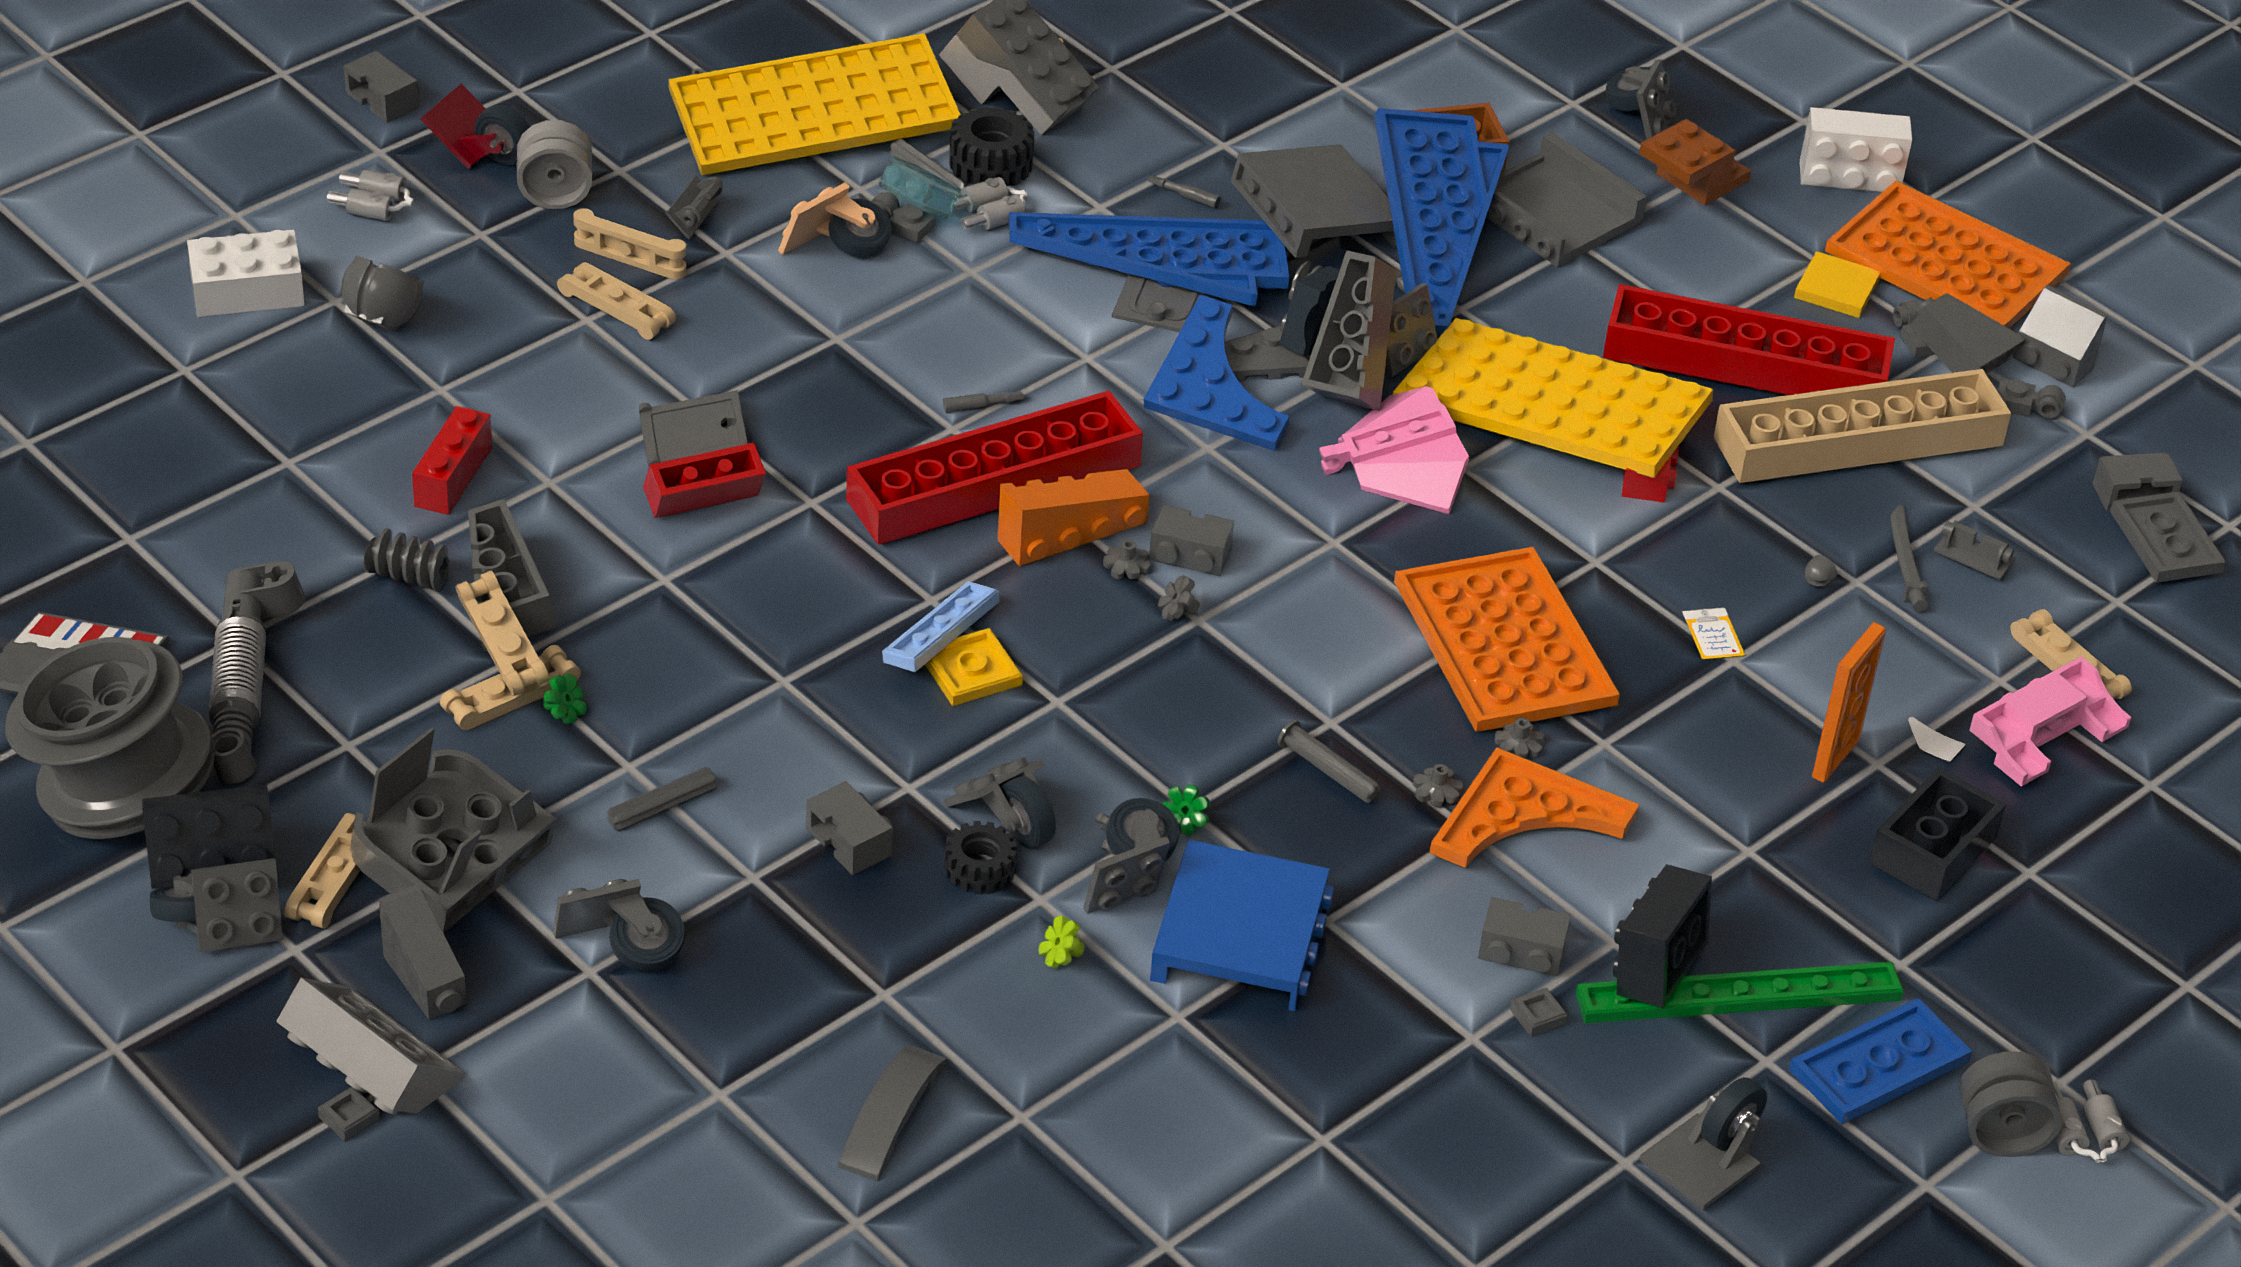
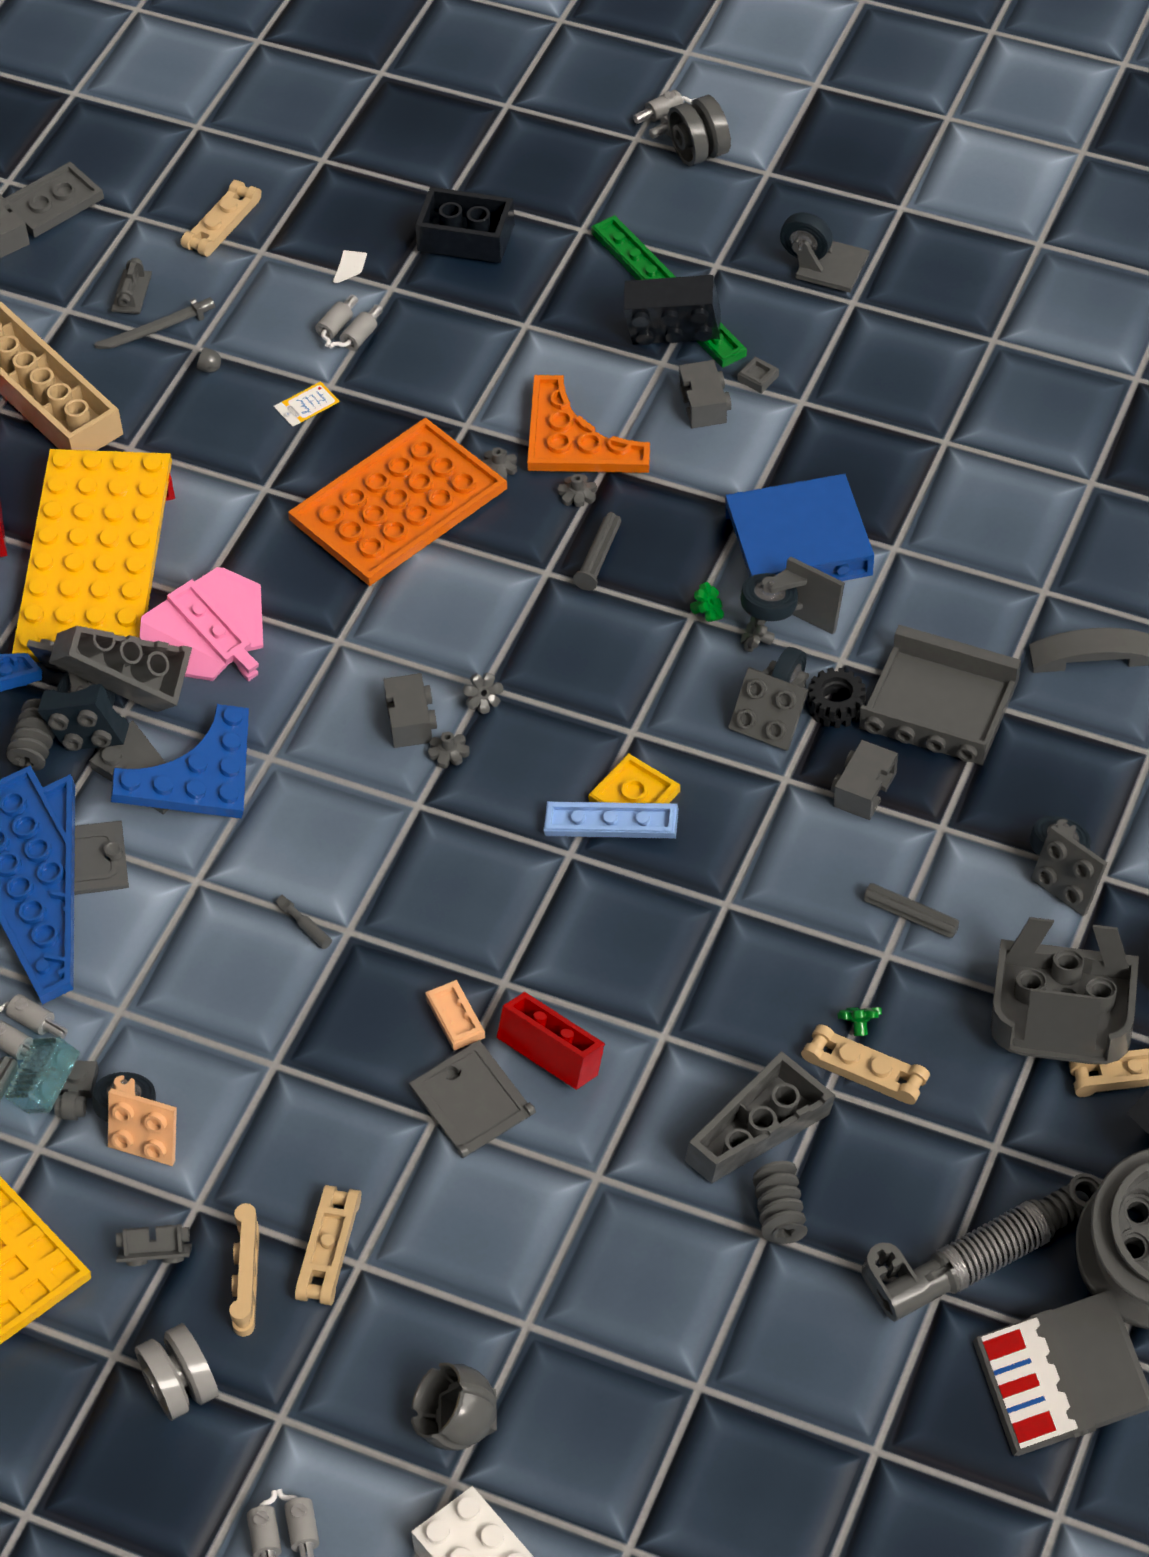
camera: 110 degrees left, 10 degrees up
(452, 460) = (635, 1240): red brick -> none
(475, 131) = (134, 1493): dark red plate -> none
(502, 633) = (842, 1064): tan plate -> none
(793, 448) = (455, 1015): none -> light nougat plate
(917, 941) = (941, 695): none -> dark grey panel
(964, 471) = (407, 857): red brick -> none
(1061, 942) = (888, 618): lime plant -> none
(1068, 513) = (431, 789): orange wedge -> none
(1804, 697) = (356, 332): none -> light grey piece
(1849, 702) = (396, 266): orange tile -> none
(1880, 1061) = (686, 208): blue plate -> none
(2043, 712) = (304, 208): bright pink bracket -> none

